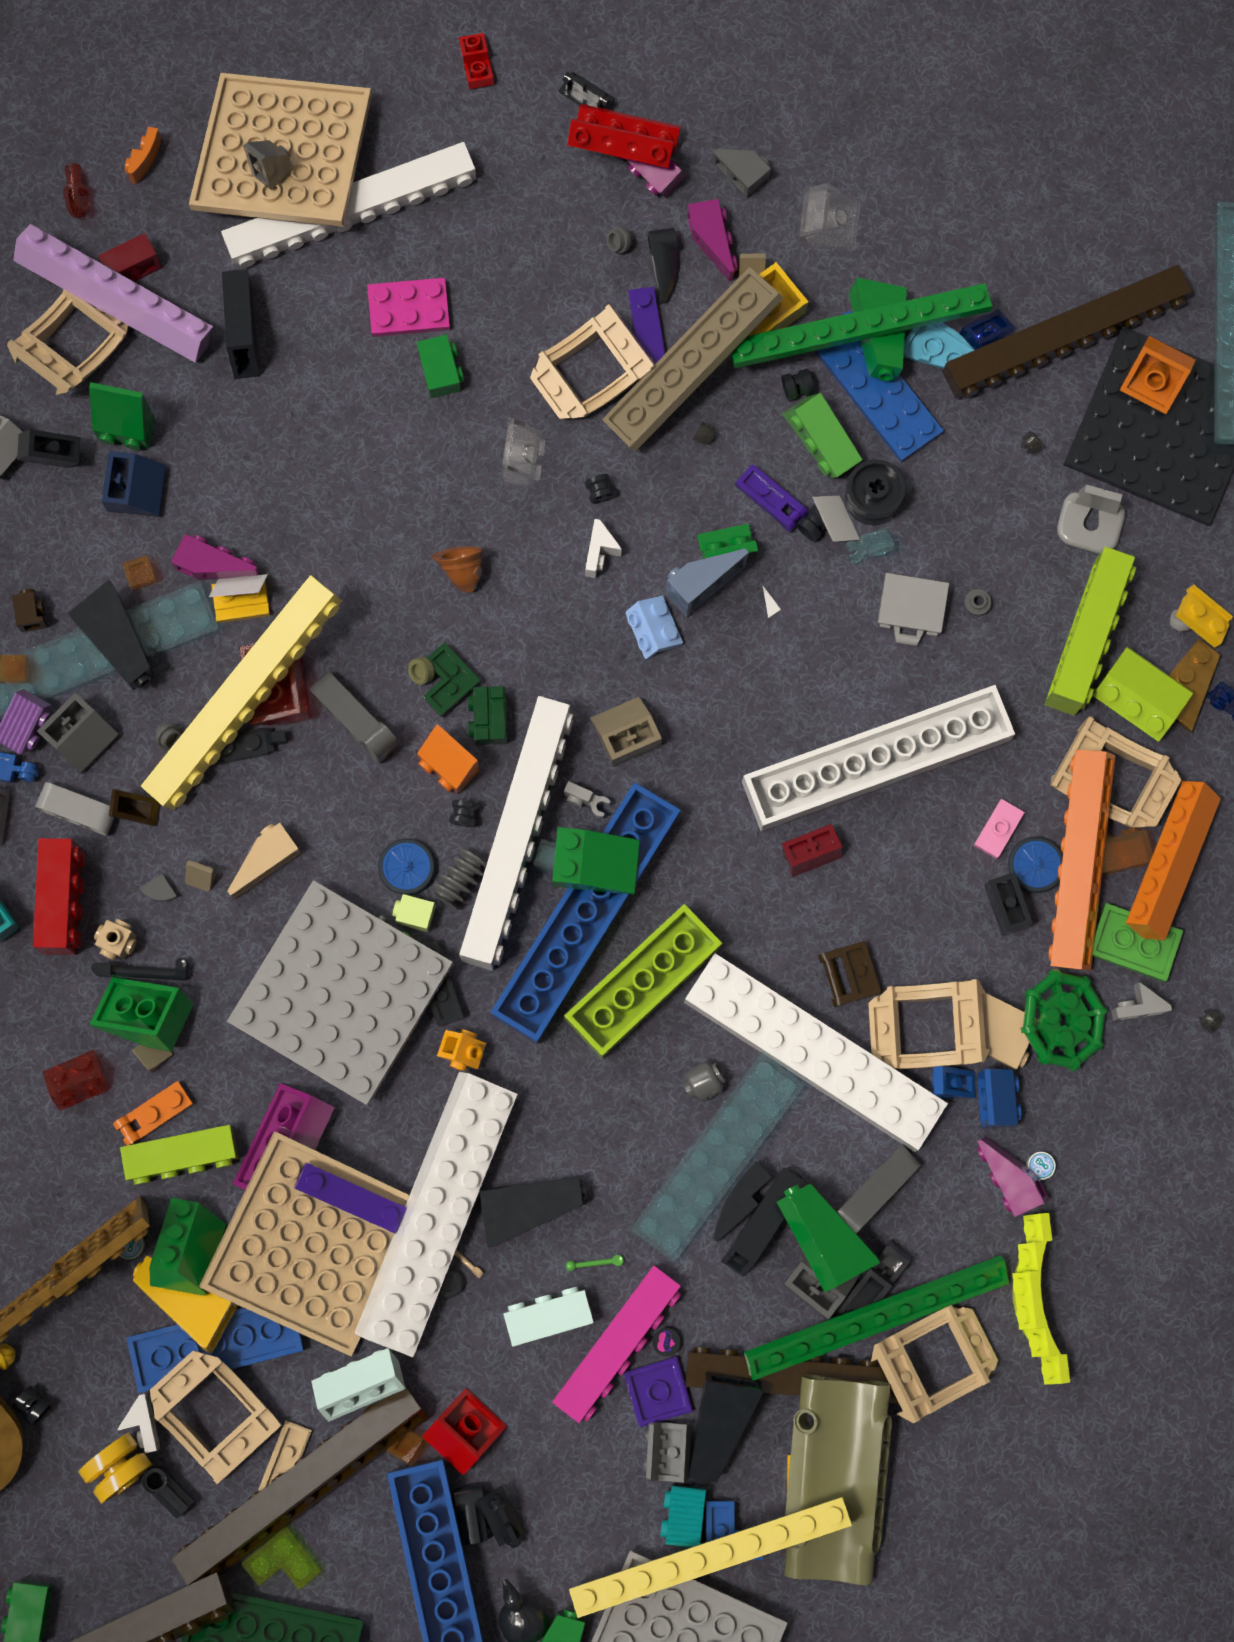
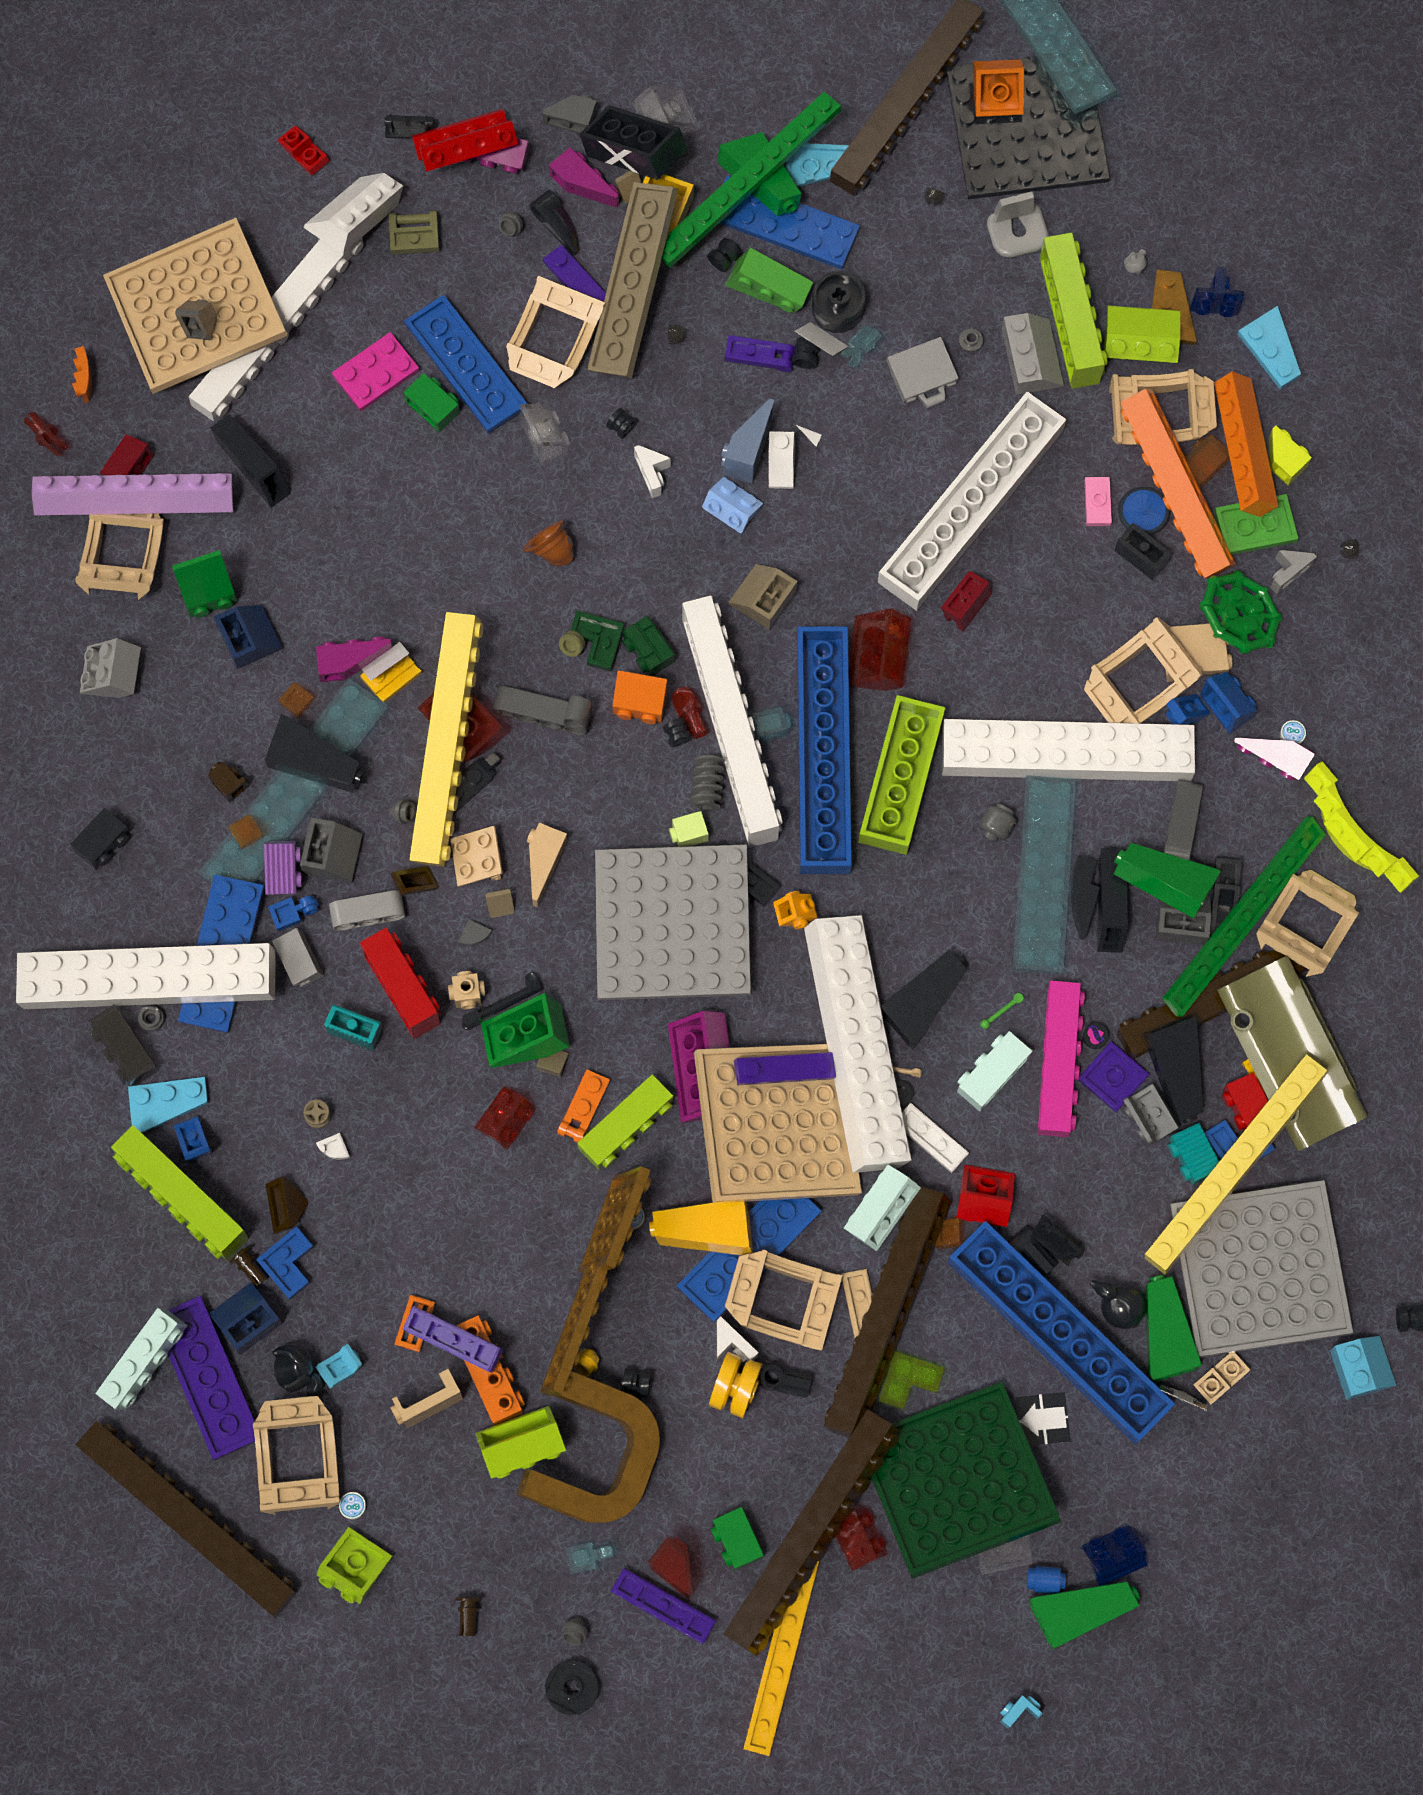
camera: 30 degrees left, 5 degrees down
(48, 448) = (161, 644): black brick -> none
(185, 1247) = (680, 1185): green slope -> none
(207, 819) = (476, 856): none -> tan hinge
(406, 866) = (658, 800): blue wheel -> none
(451, 1344) = (932, 1138): none -> white tile
(481, 146) = (356, 211): none -> white slope
(488, 797) = (688, 707): none -> clear red arm
(494, 348) = (465, 363): none -> blue plate
(523, 202) = (413, 239): none -> olive plate
(580, 796) = (761, 664): light grey plate -> none
(595, 861) = (807, 702): green slope -> none
(699, 848) = (879, 650): none -> clear red slope
(725, 611) = (781, 460): none -> white slope
(726, 541) = (746, 406): green bracket -> none
(767, 1496) = (1245, 1099): none -> red brick
(777, 228) = (633, 142): none -> black brick
(858, 970) = (1061, 671): dark brown plate -> none
(987, 330) = (844, 129): clear blue plate -> none
(1027, 649) = (1031, 353): none -> light grey slope
(1204, 616) = (1150, 249): yellow plate -> none
(1206, 894) = (1286, 457): none -> neon yellow slope

